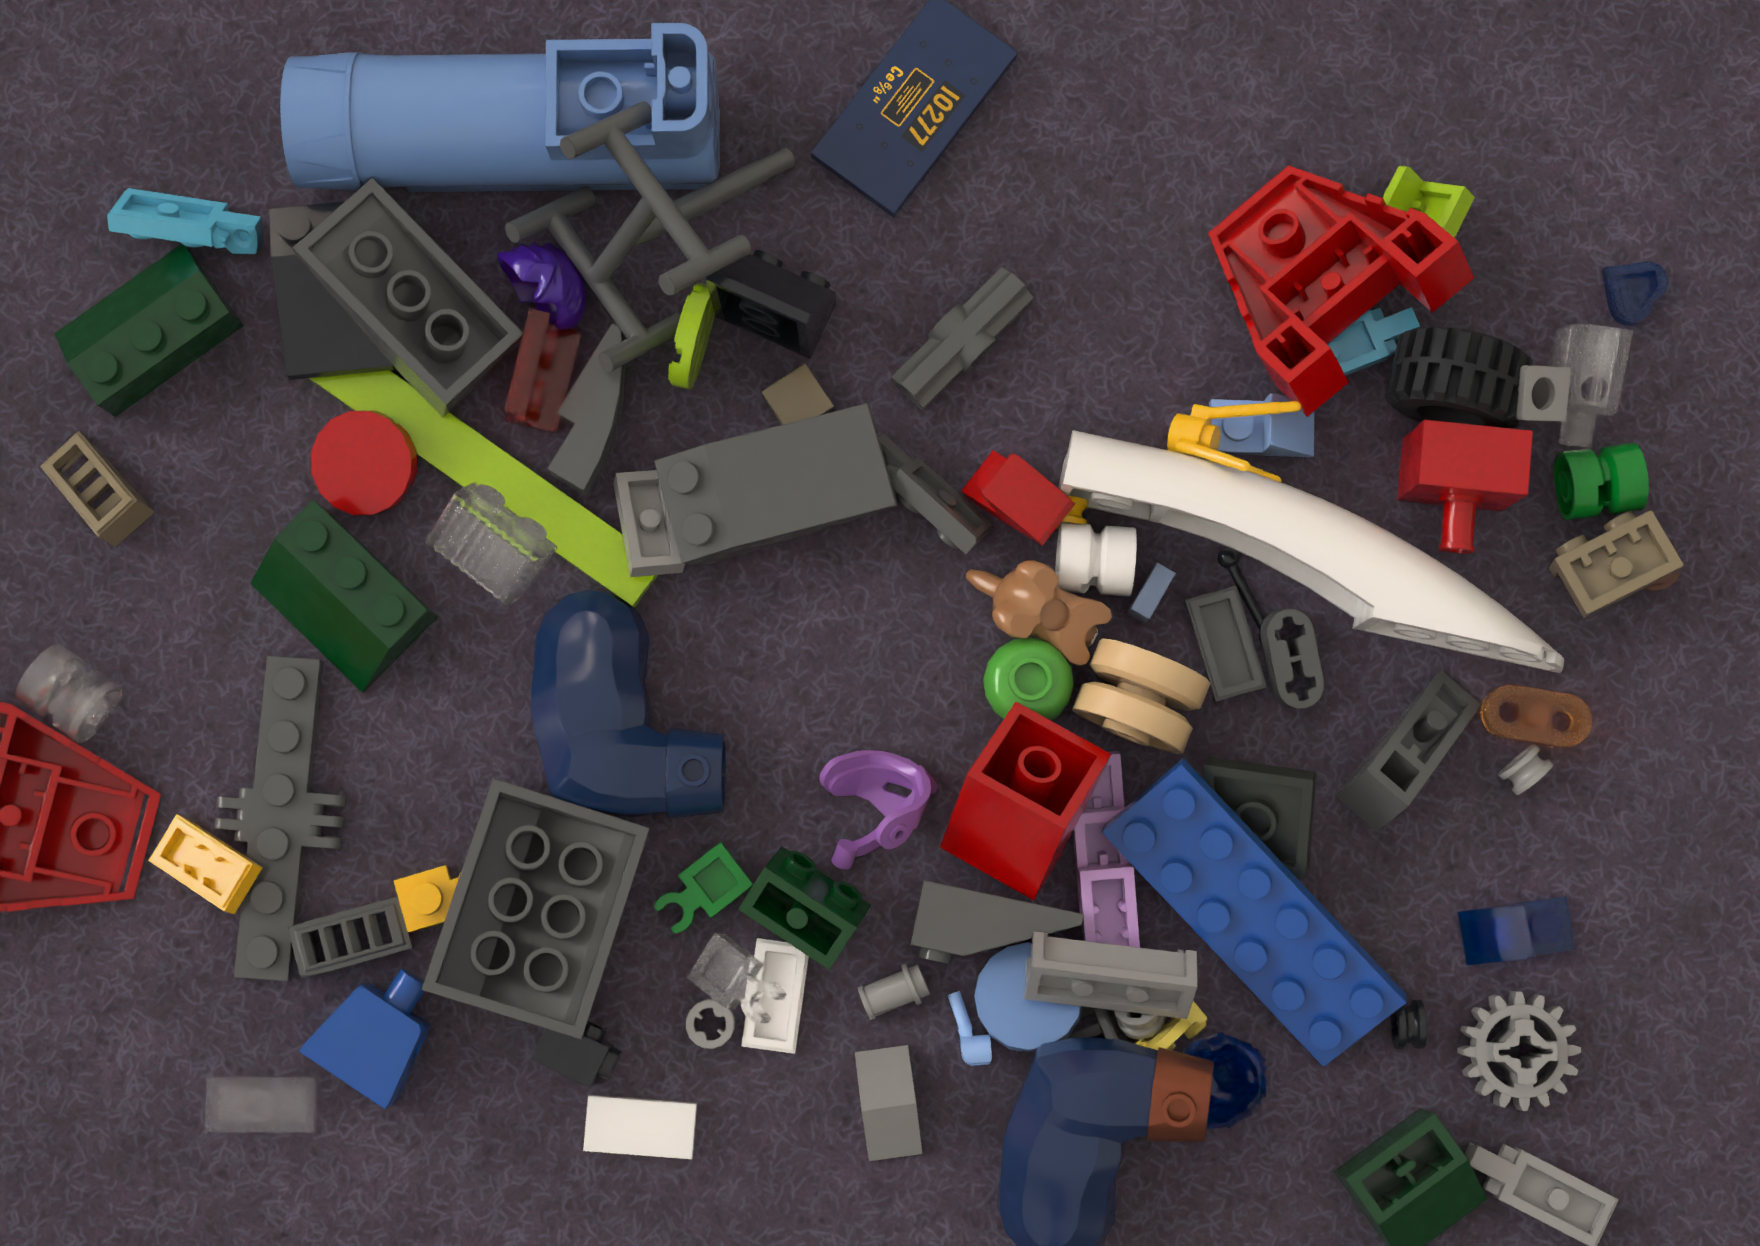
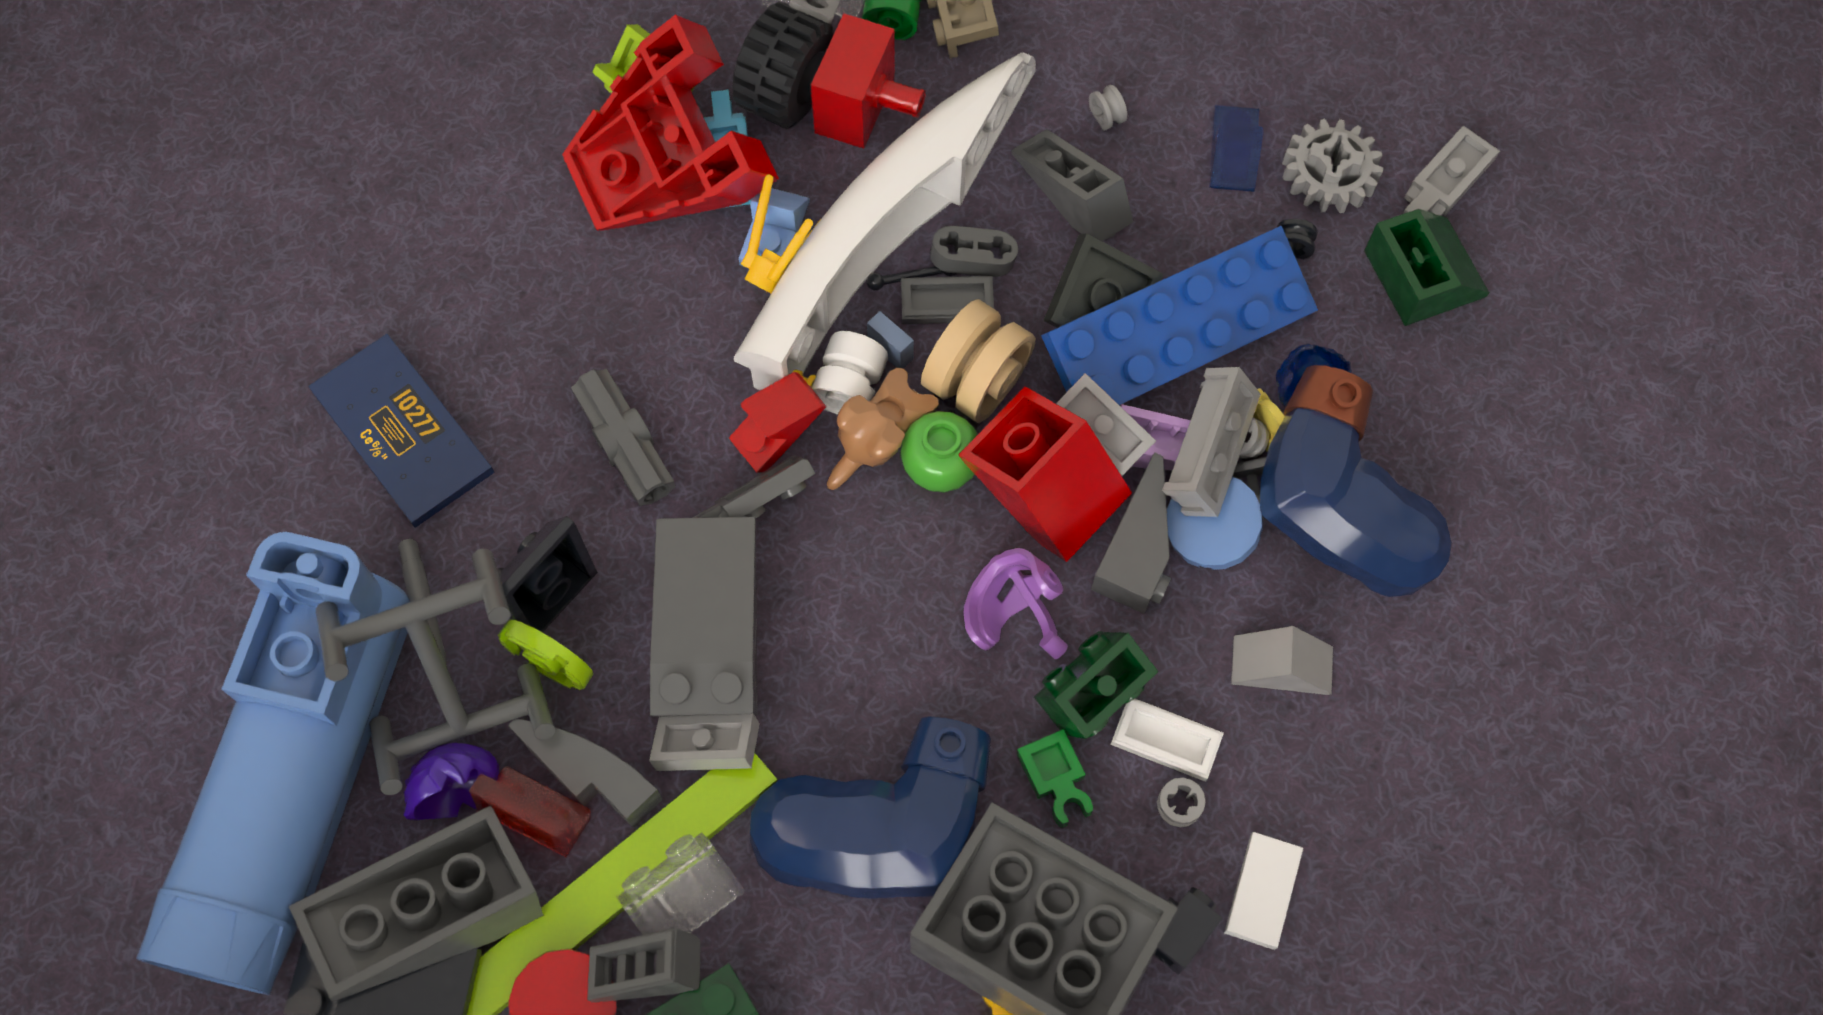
camera: 75 degrees left, 15 degrees down
(414, 559) = (675, 966): none -> dark grey slope
(729, 976) = (1141, 771): clear plate -> none
(797, 397) = (630, 589): dark tan tile -> none
(894, 991) = (1185, 633): light grey pin -> none
(974, 1048) = (1249, 576): light blue hand -> none
(1092, 850) = (1114, 427): none -> light grey plate
(1534, 716) = (1066, 93): clear orange plate -> none

